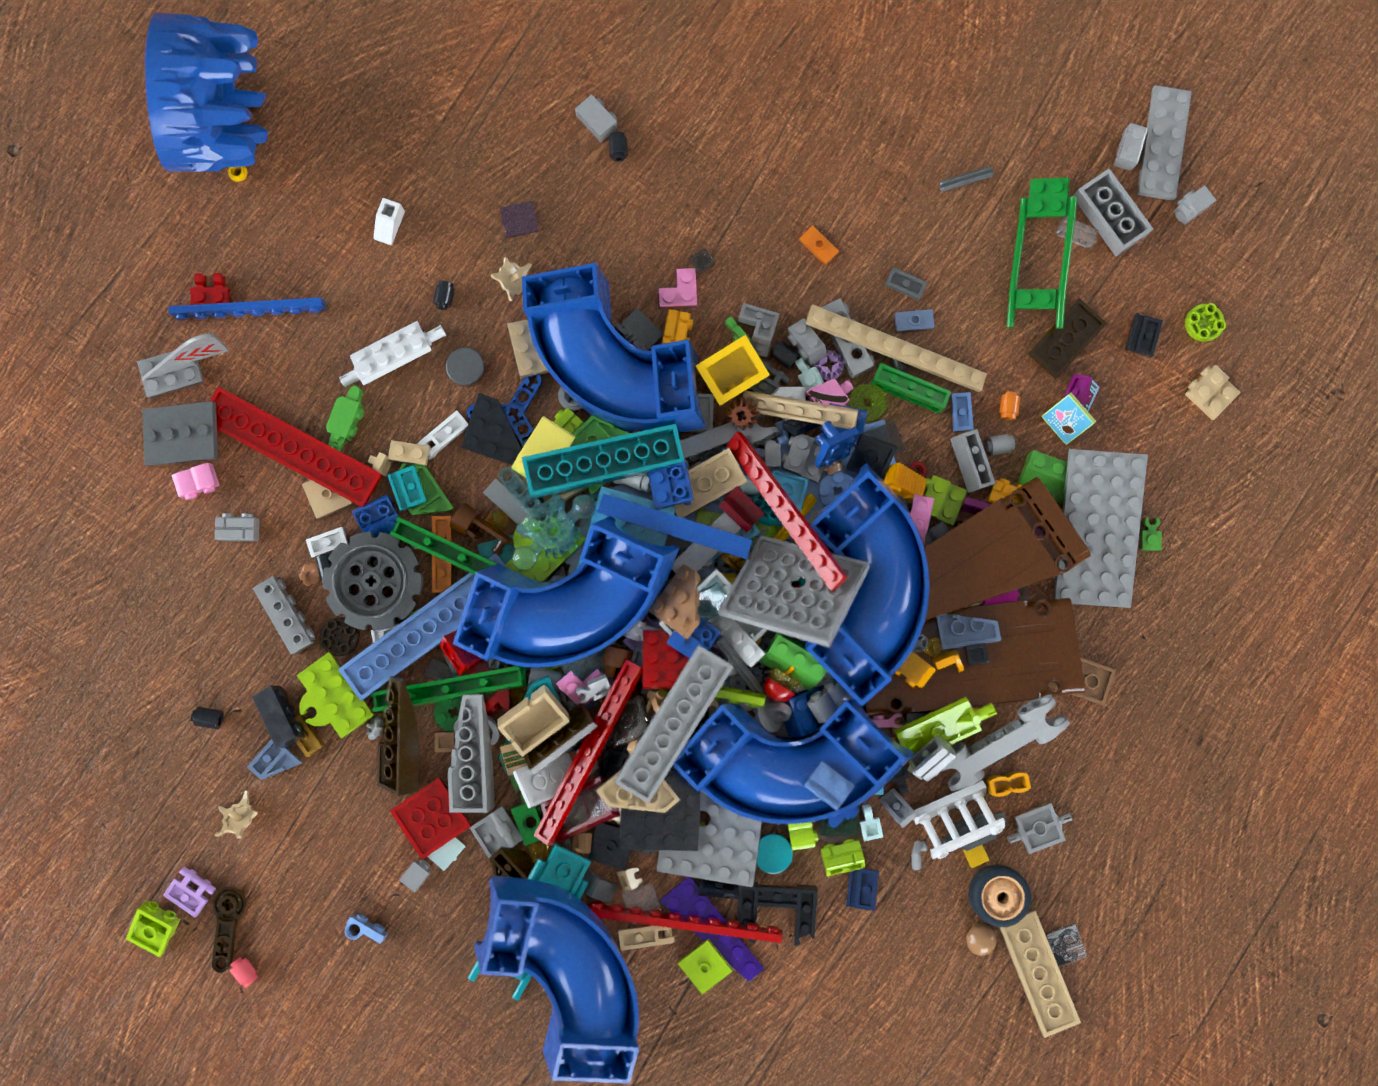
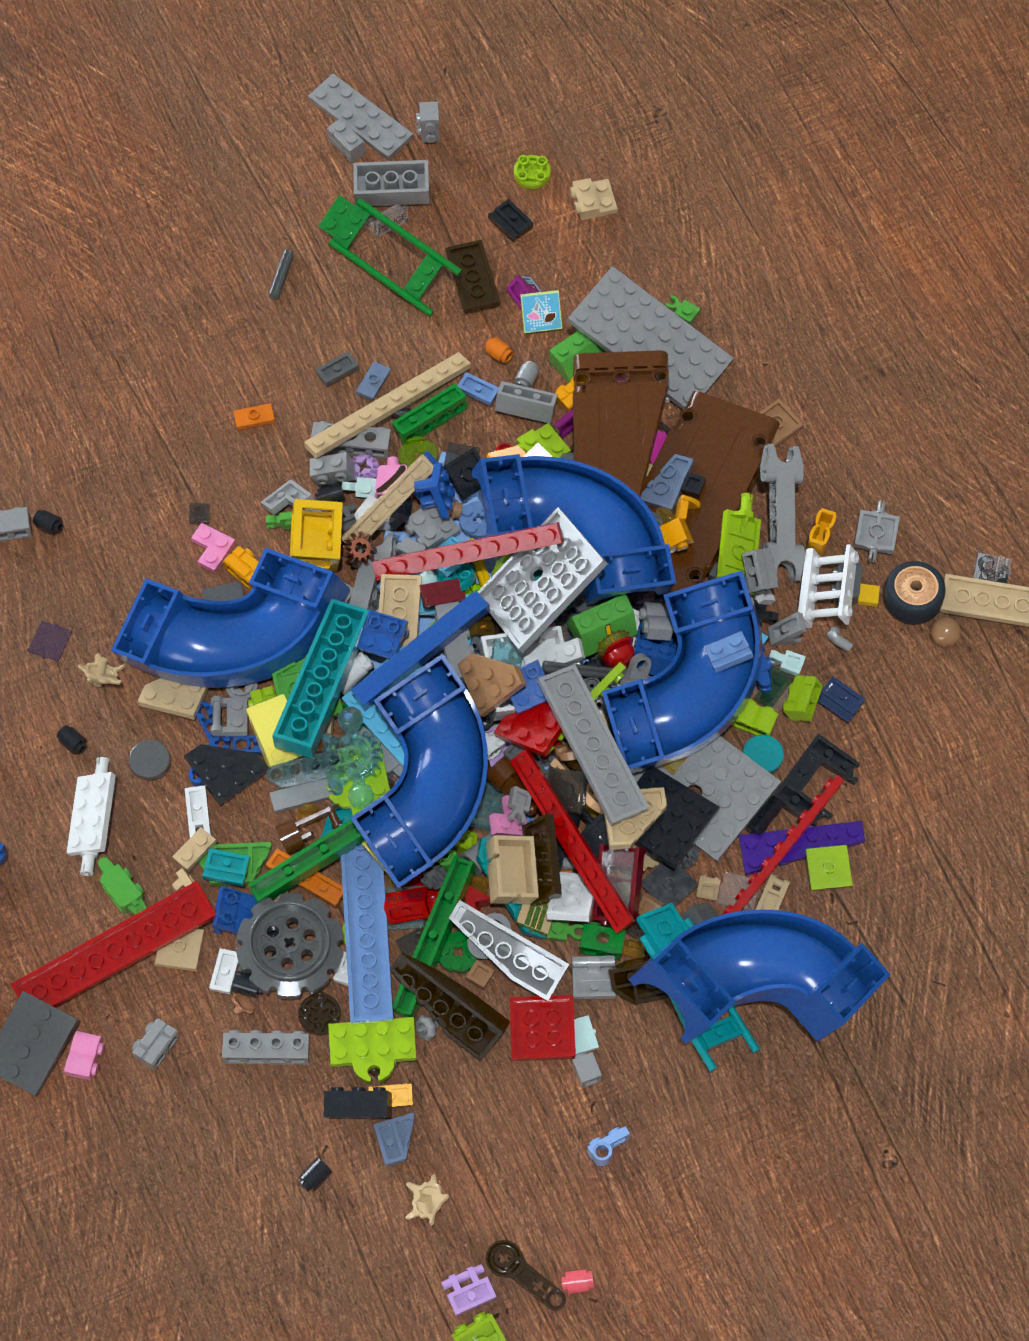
camera: 55 degrees left, 20 degrees down
(546, 407) = (235, 716): none -> light grey plate

